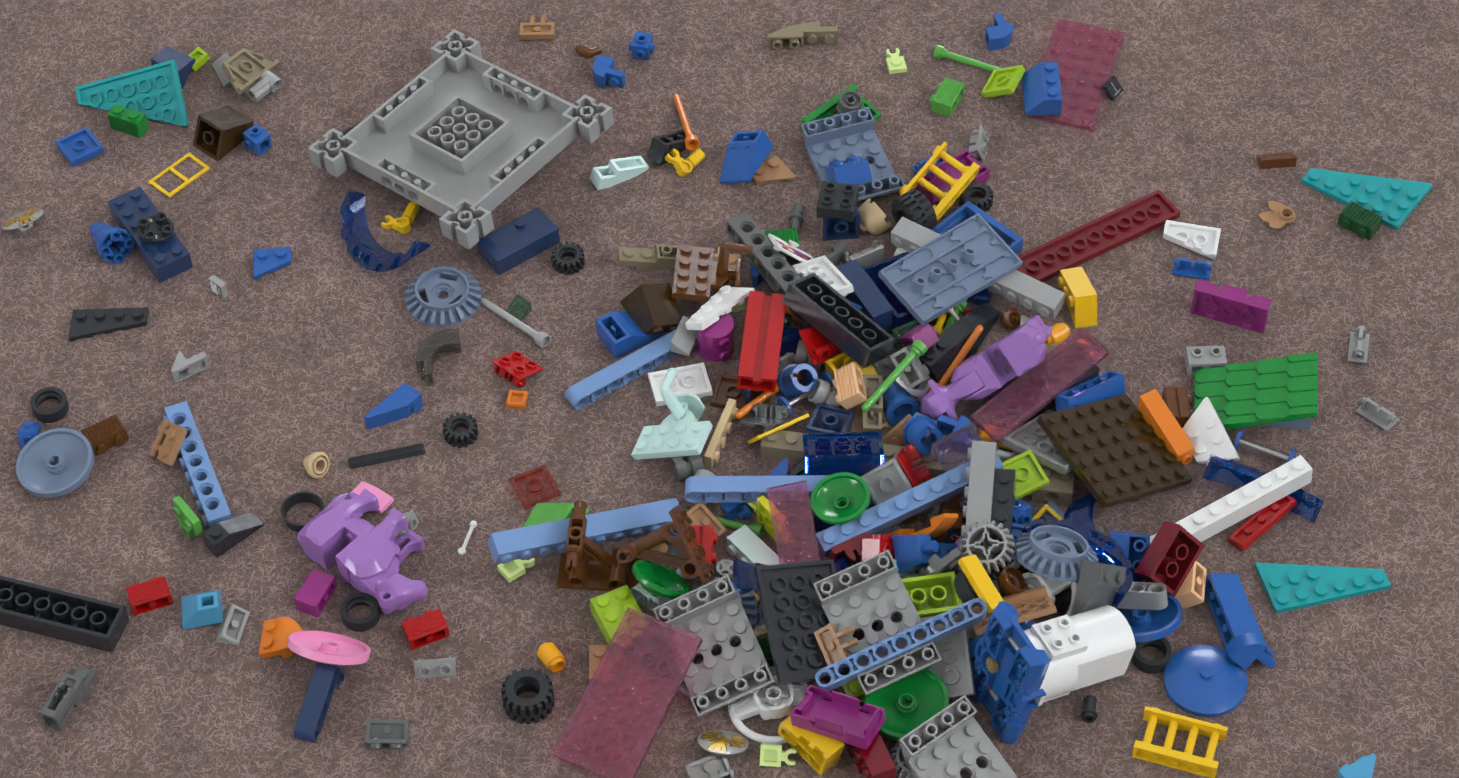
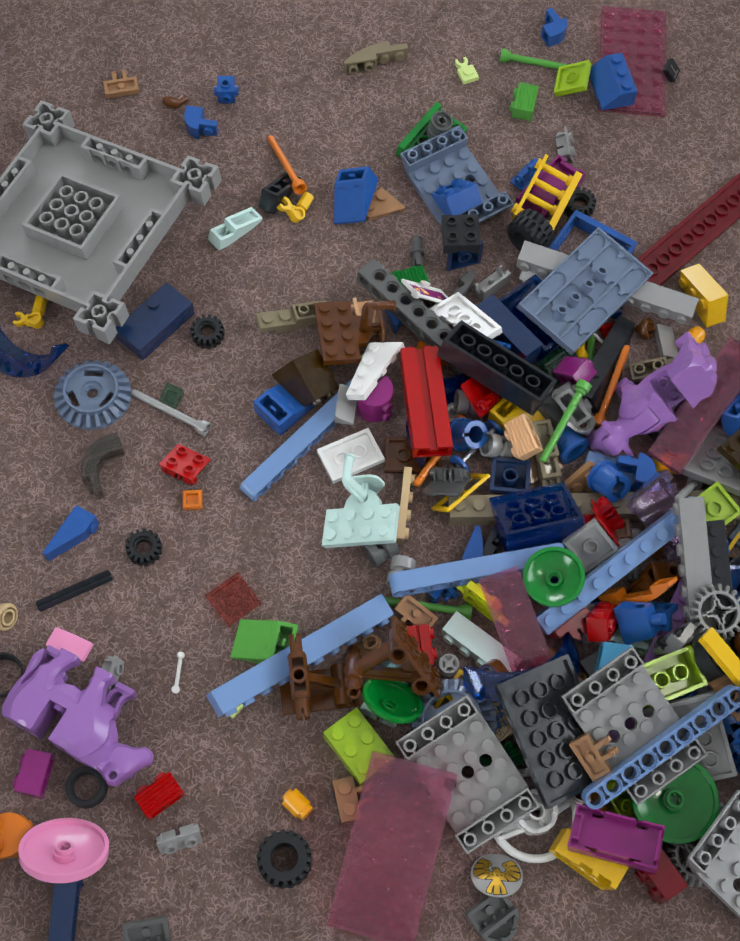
camera: 15 degrees left, 15 degrees up
(773, 755) = (551, 878): yellowish green plate -> none
(872, 218) = (493, 242): tan cylinder -> none

